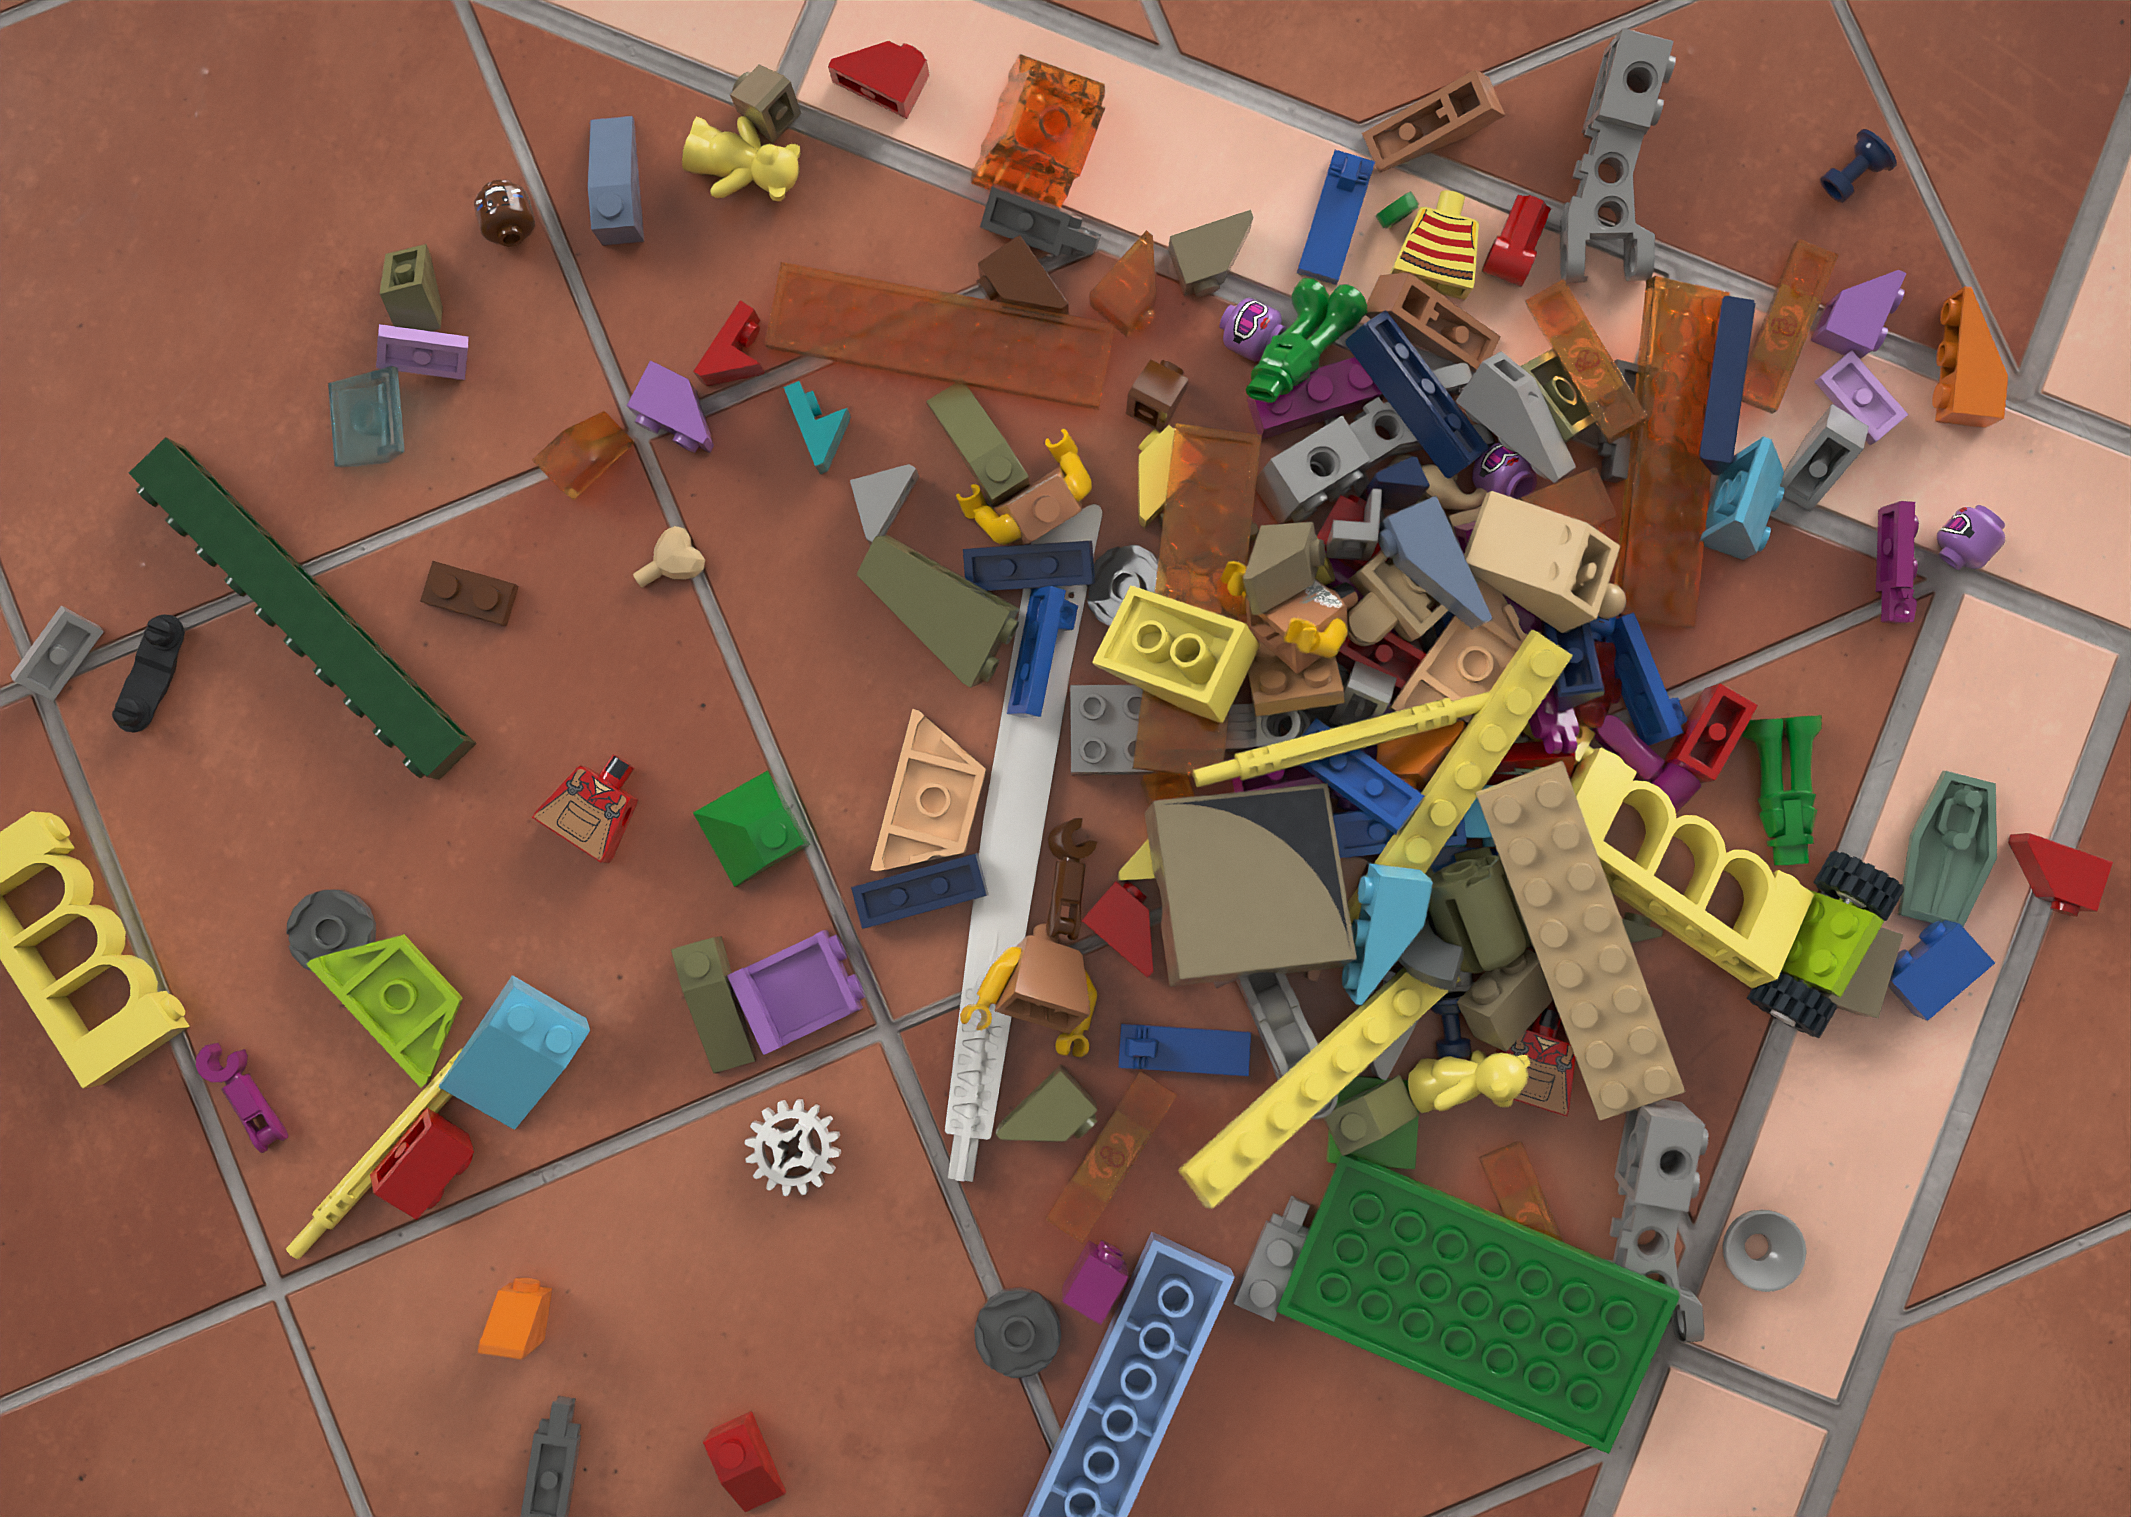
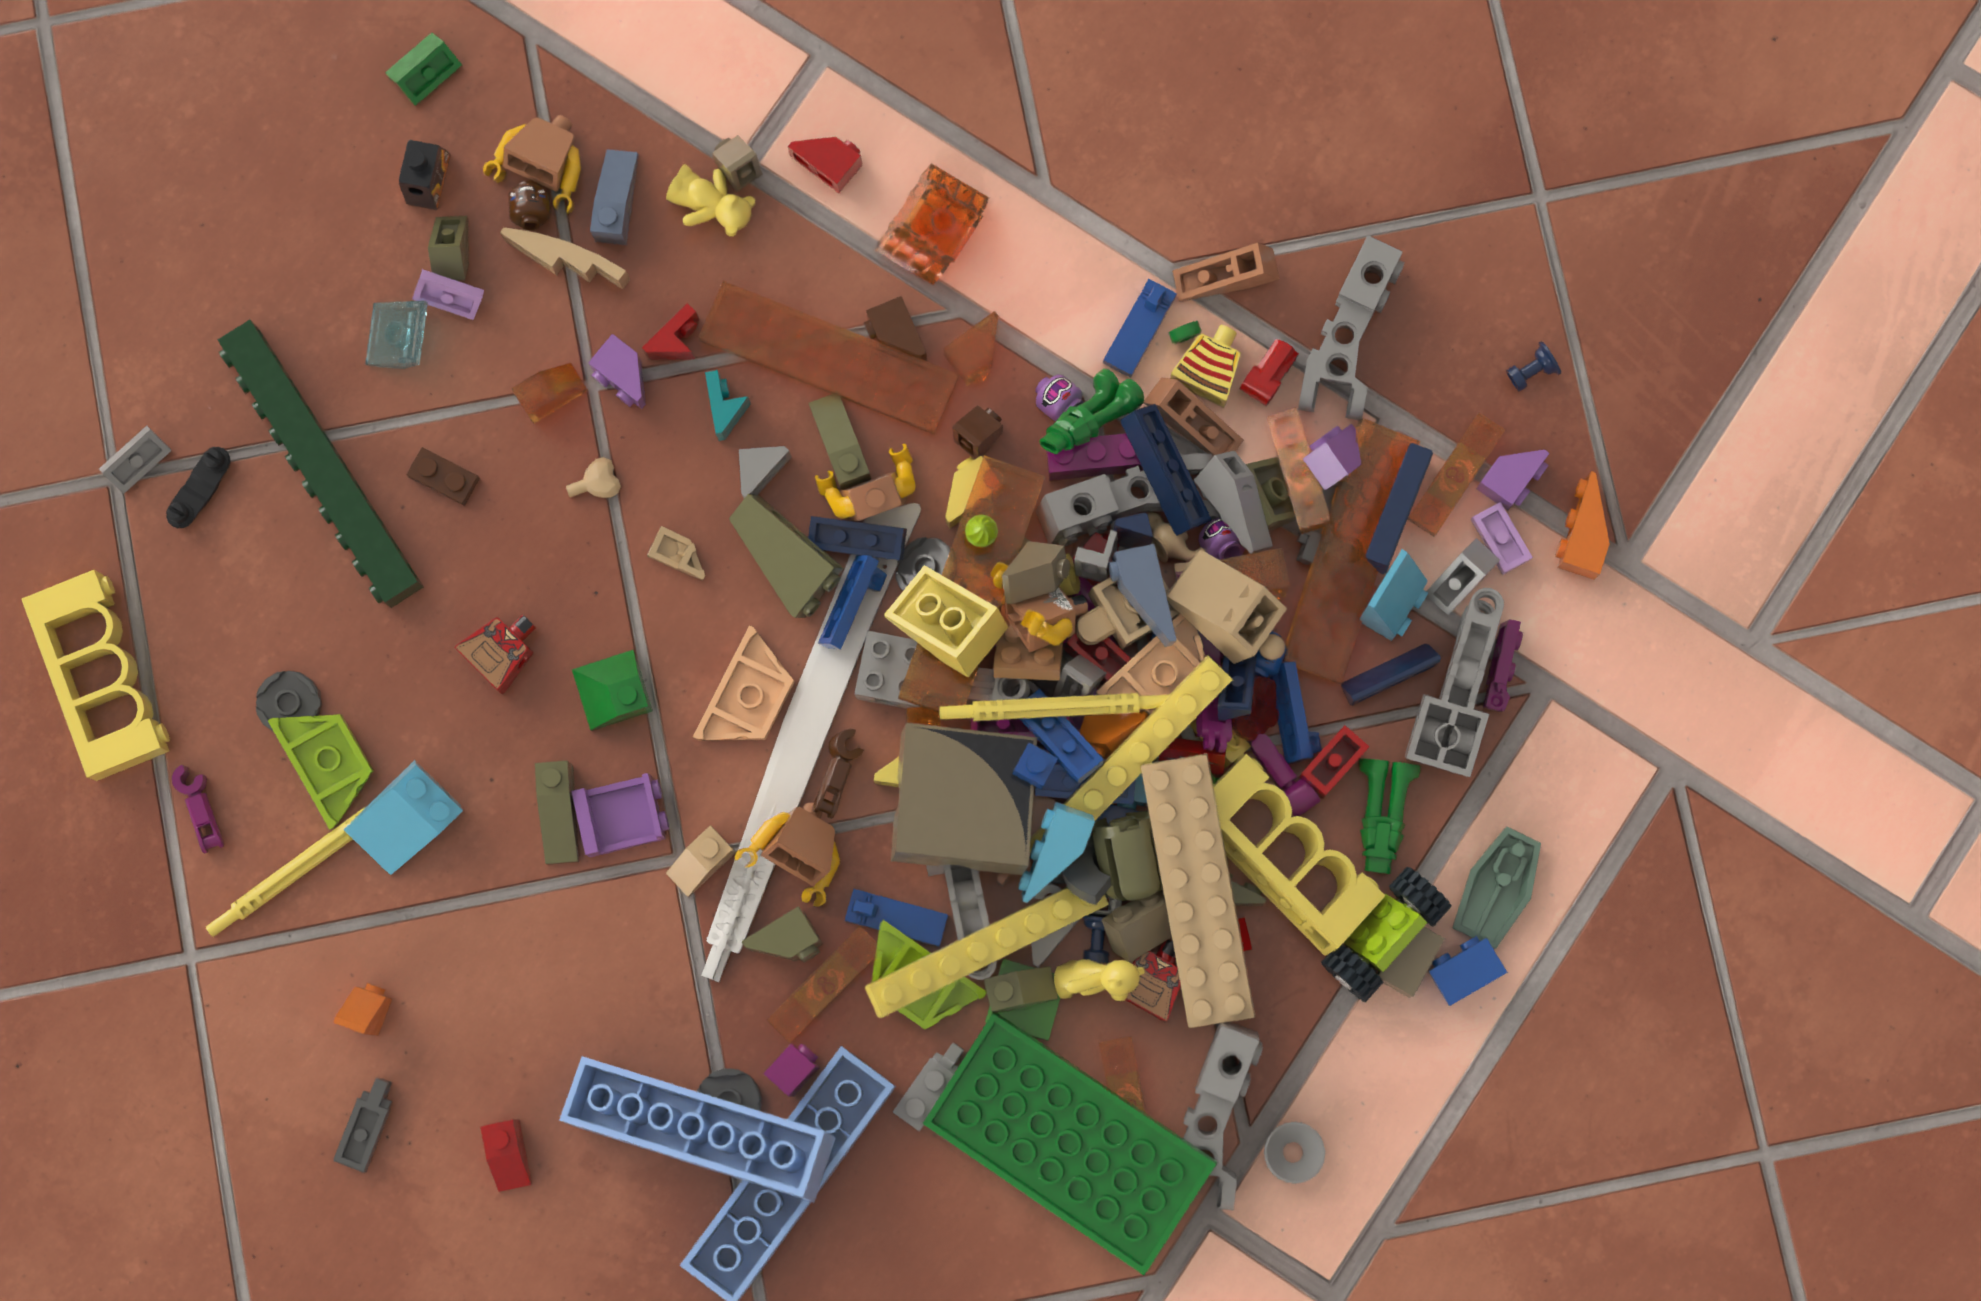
camera: 15 degrees right, 5 degrees down
(327, 59) = (424, 68): none -> green panel
(354, 189) = (424, 169): none -> black torso
(422, 1164) = (319, 884): red brick -> none
(507, 142) = (542, 154): none -> nougat torso
(556, 269) = (556, 253): none -> tan slope
(775, 1137) = (582, 940): white gear -> none
(796, 632) = (676, 552): none -> tan slope
(915, 1029) = (700, 861): none -> tan slope
(919, 891) = (725, 759): dark blue plate -> none
(992, 1391) = (698, 1129): none -> light blue brick
(1037, 223) = (917, 289): dark grey hinge -> none
(1124, 924) = (870, 814): red slope -> none
(1196, 524) = (981, 531): none -> lime plate
(1205, 1106) = (896, 951): none -> lime wing
(1208, 252) = (1039, 336): dark tan slope -> none
(1334, 822) = (1035, 766): none -> blue plate
(1631, 333) = (1334, 456): none -> medium lavender slope
(1754, 602) = (1390, 673): none -> dark blue slope
(1852, 658) = (1449, 727): none -> light grey brick
(1971, 537) = (1560, 657): medium lavender head -> none
(2061, 874) = (1577, 919): red slope -> none

